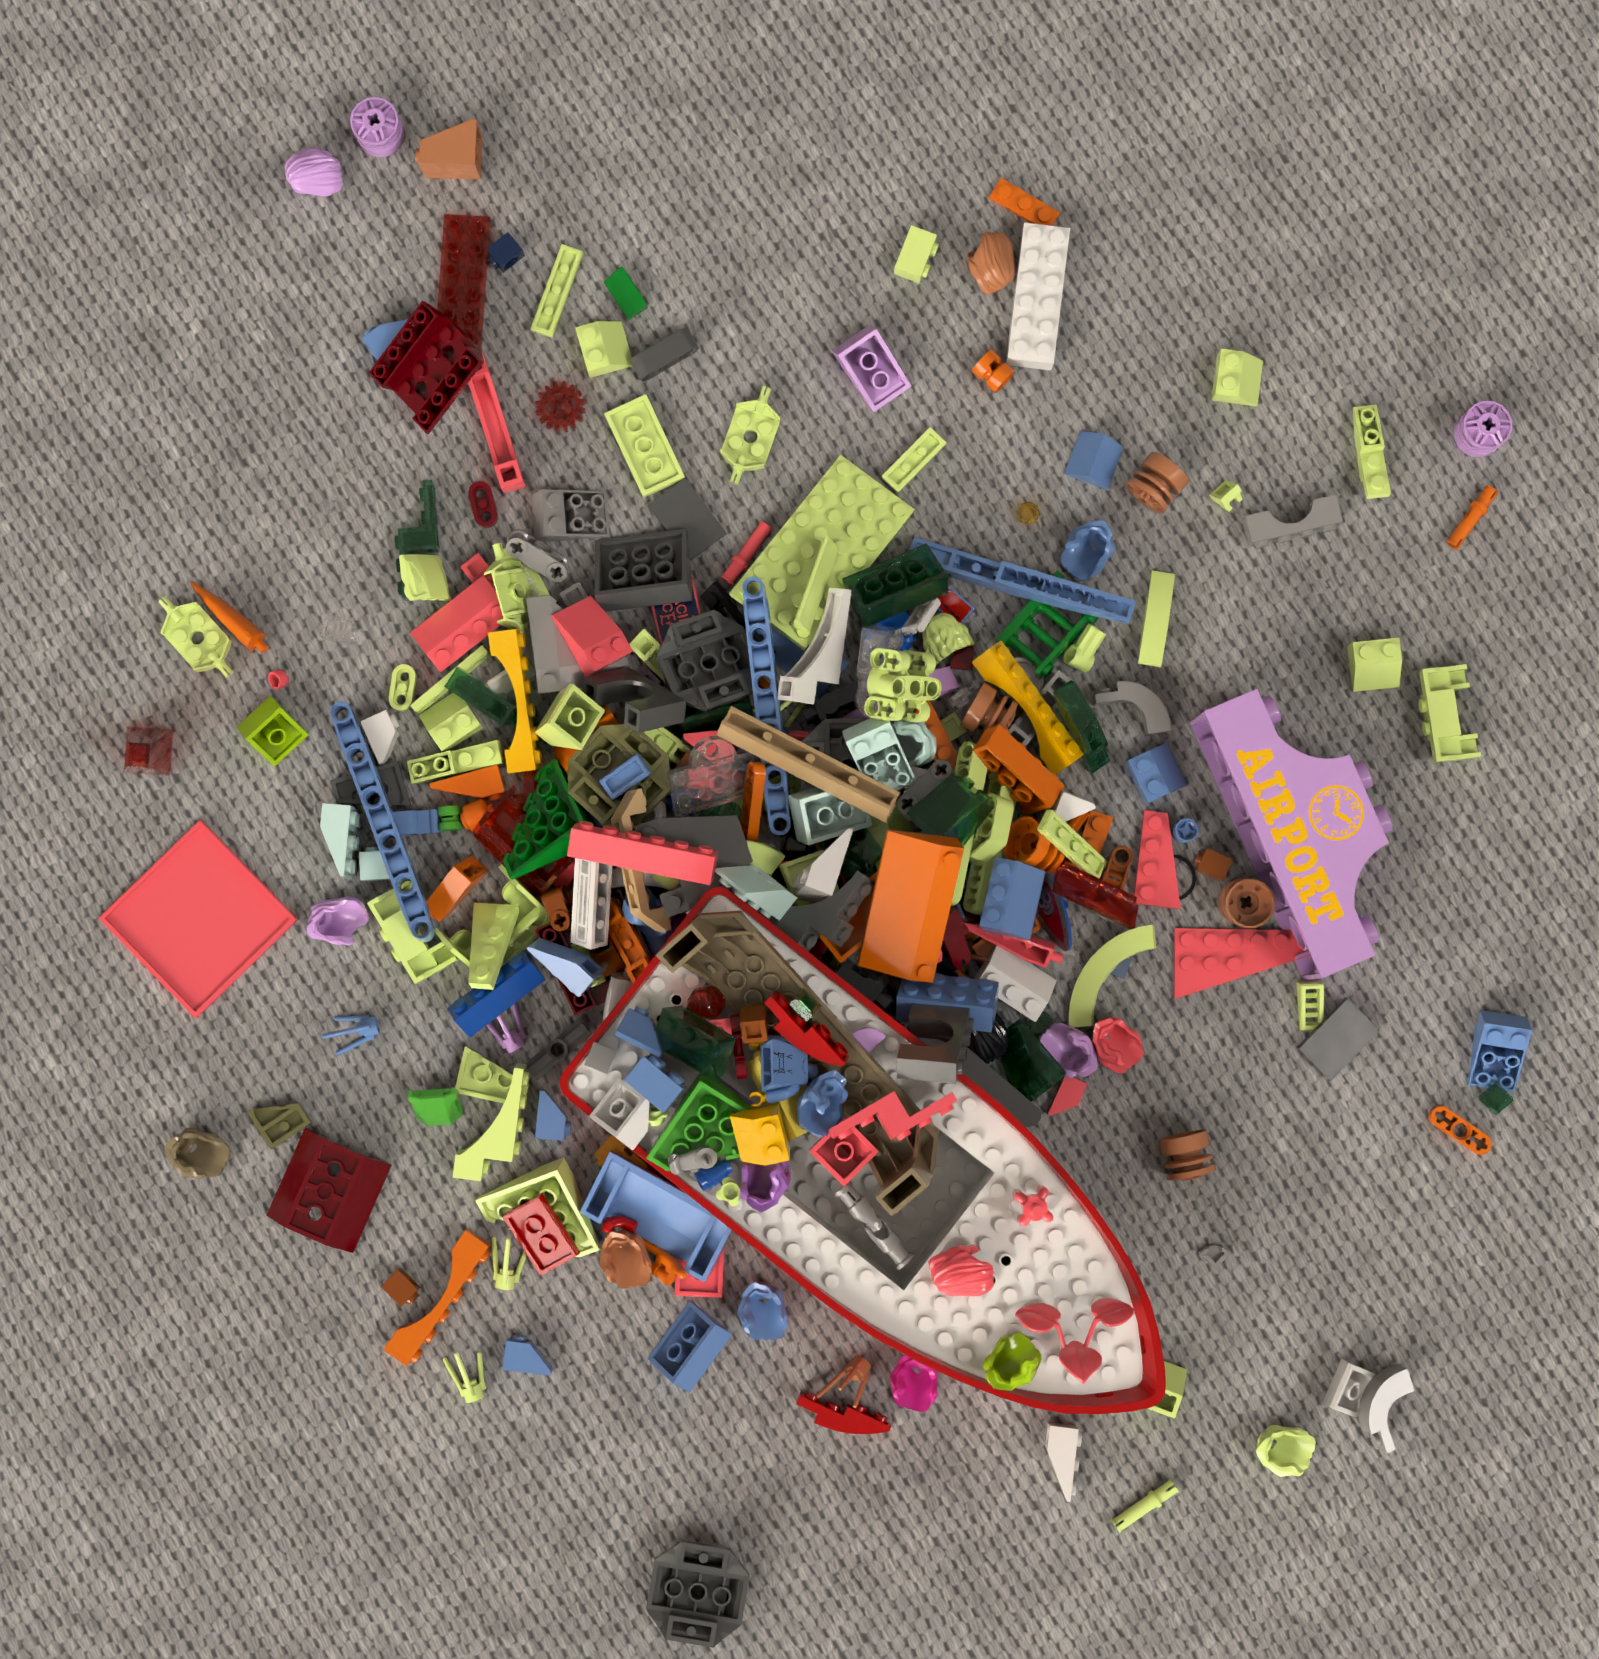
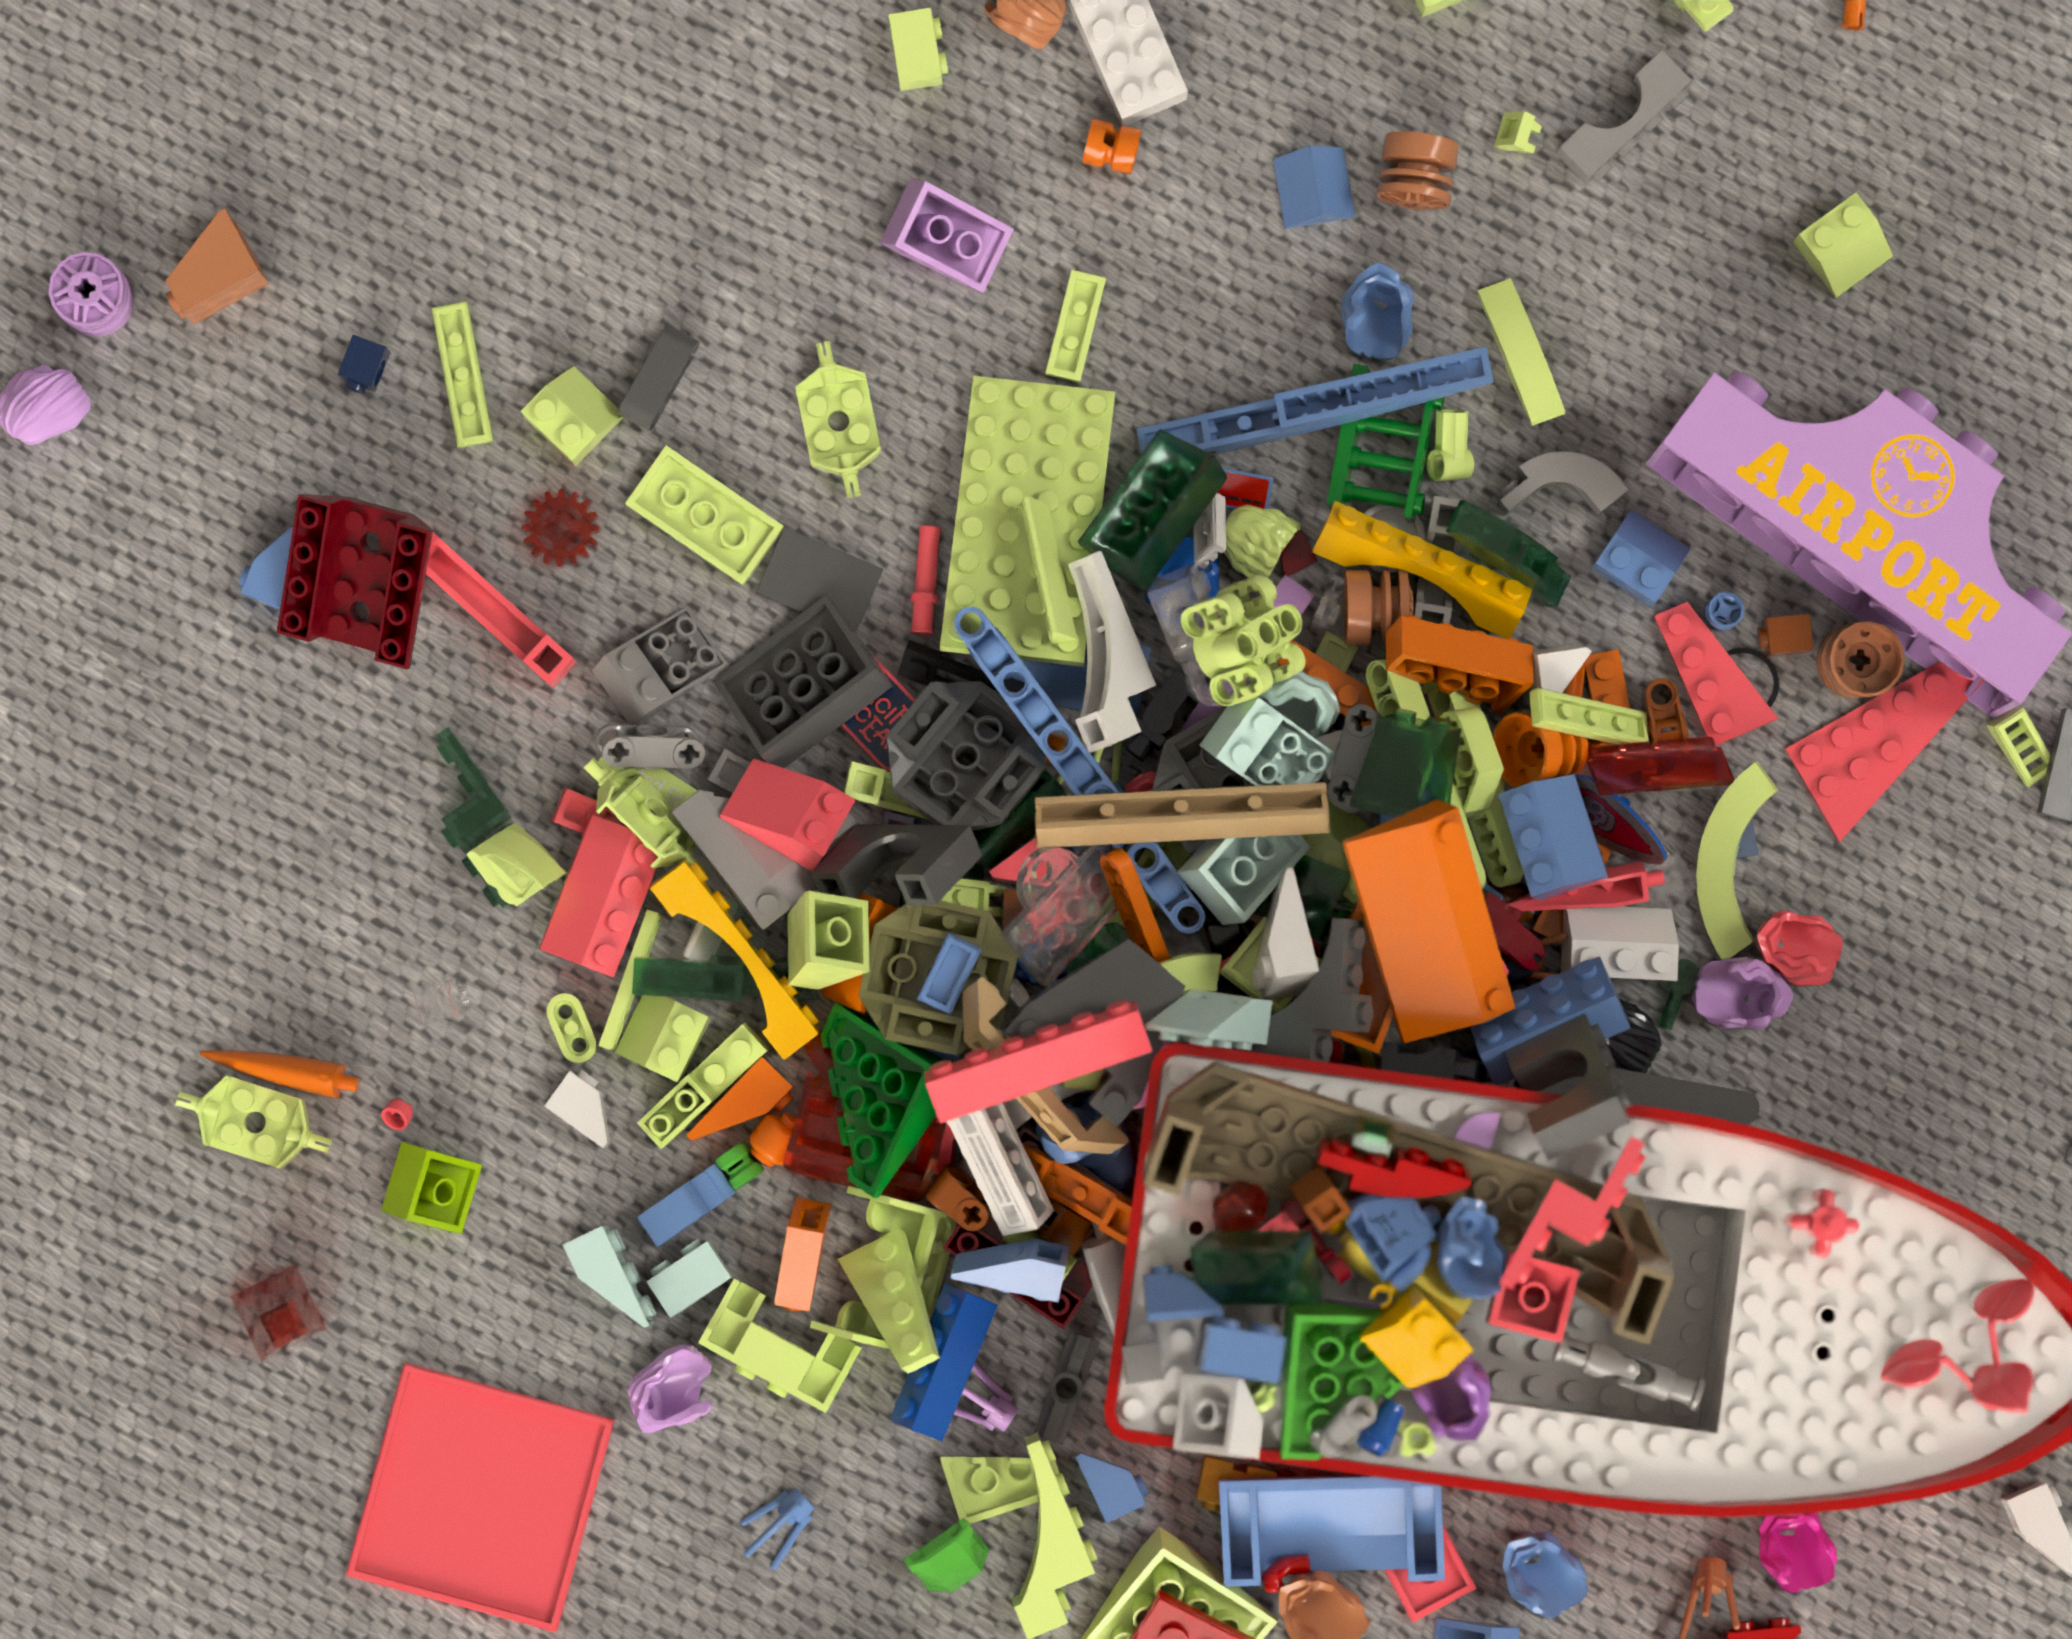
camera: 30 degrees left, 0 degrees up
(382, 821) = (654, 1221): medium blue beam -> none
(392, 780) = (612, 1182): dark grey wing -> none
(464, 273) = (323, 422): clear red plate -> none
(483, 505) = (534, 720): dark red plate -> none
(625, 293) = (557, 325): green slope -> none
(663, 1260) = (1372, 1582): orange piece -> none
(960, 1273) = (1780, 1365): coral hair -> none
(1012, 1362) = (1914, 1443): lime hair -> none
(1028, 513) = (1269, 310): clear yellow tile -> none
(1028, 1063) = (1700, 1040): clear green slope -> none
(1068, 1095) = (1774, 1053): coral tile -> none
(1186, 1155) = (1977, 1039): nougat wheel -> none
(1441, 714) = (1969, 260): yellowish green bracket -> none

